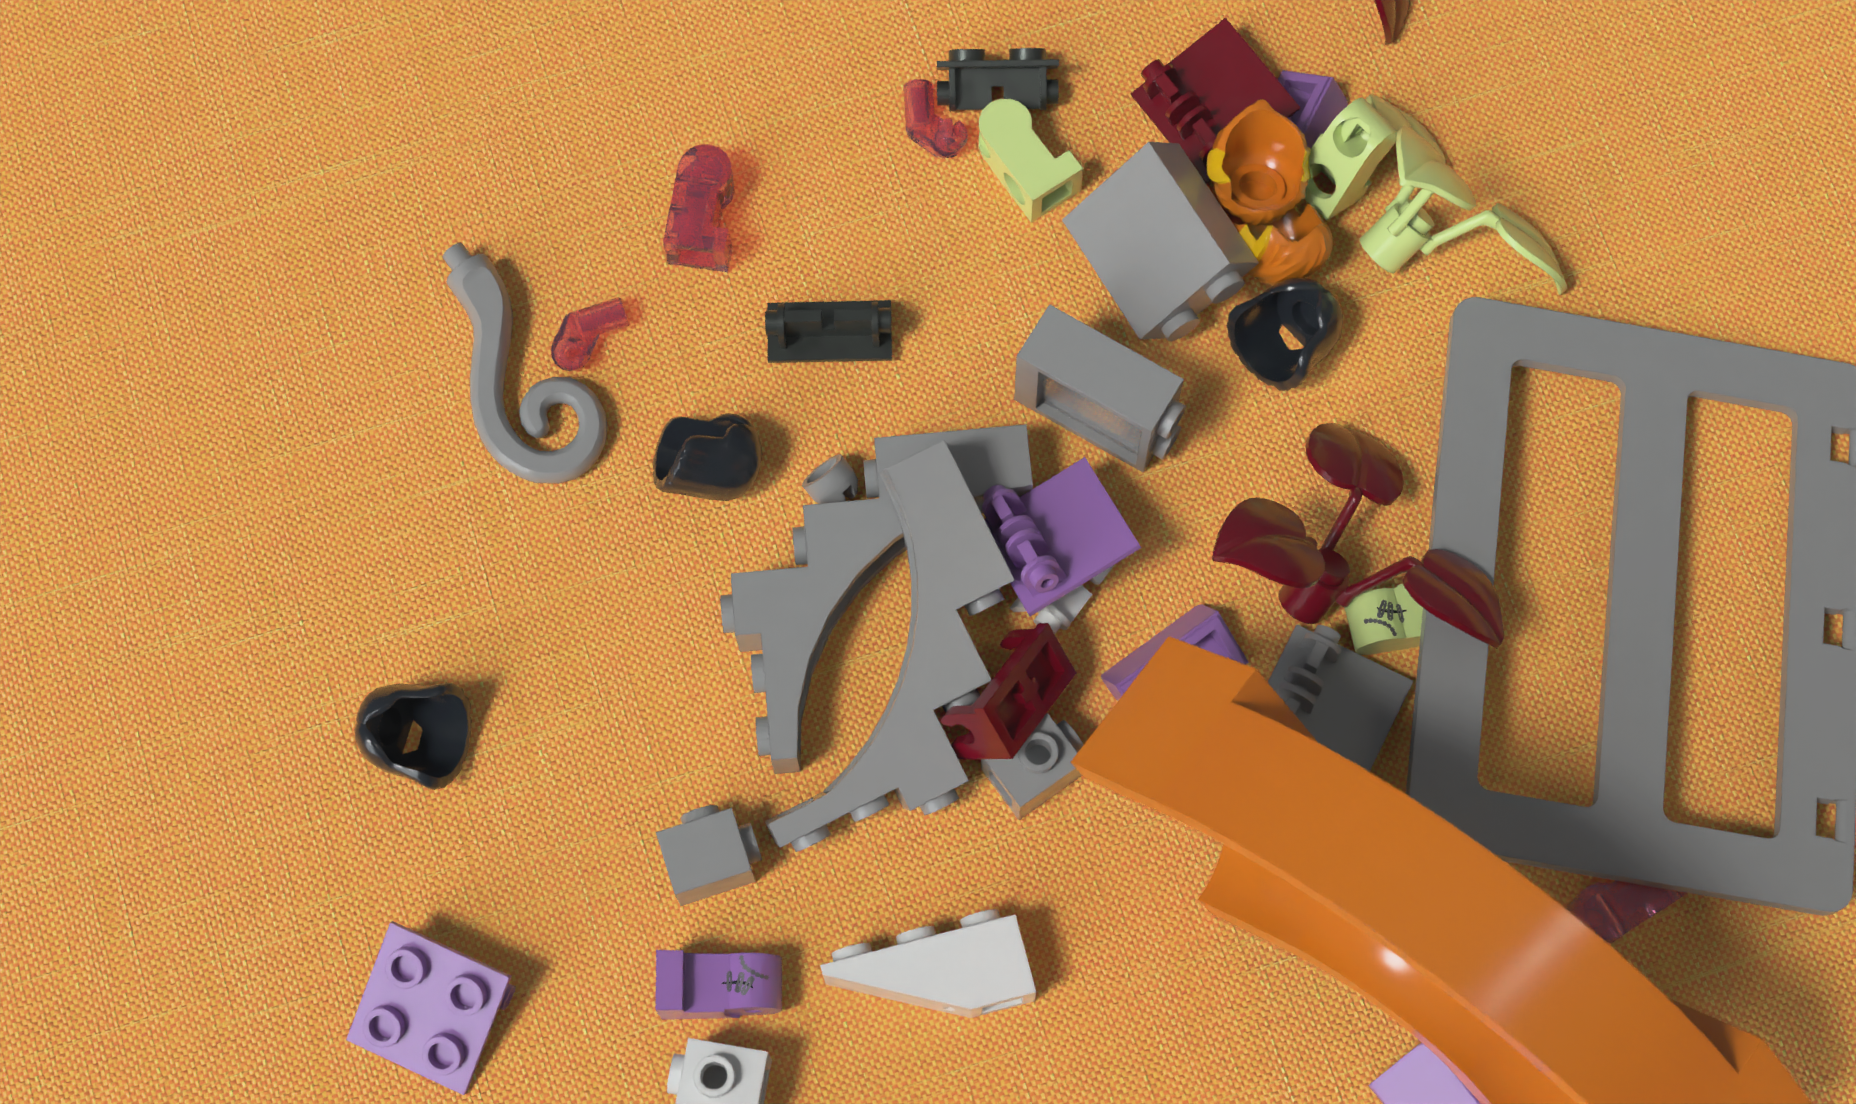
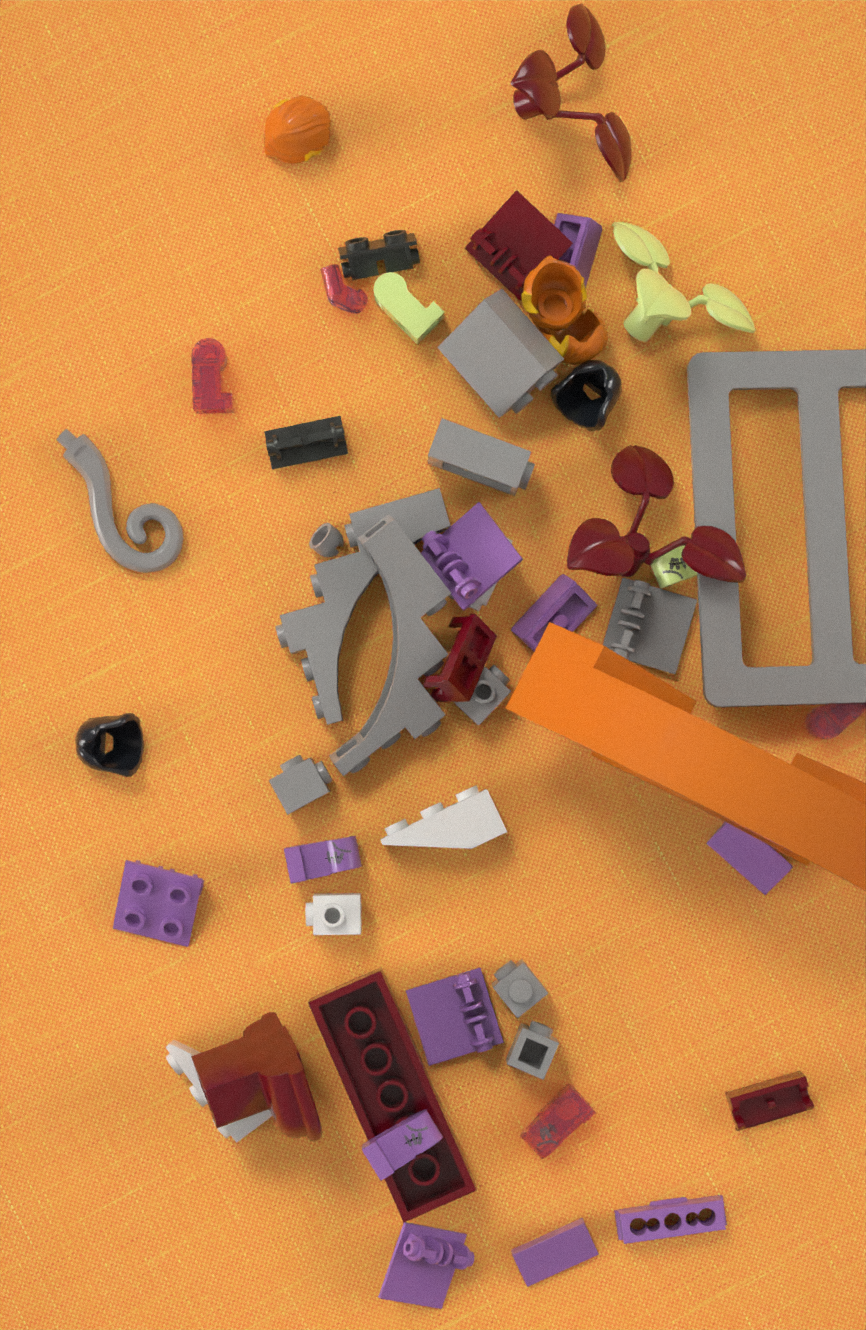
camera: 15 degrees left, 15 degrees up
(581, 331) = (152, 471): clear pink arm -> none
(707, 457) = (240, 548): black hair -> none
(1348, 156) = (608, 275): yellowish green leg -> none

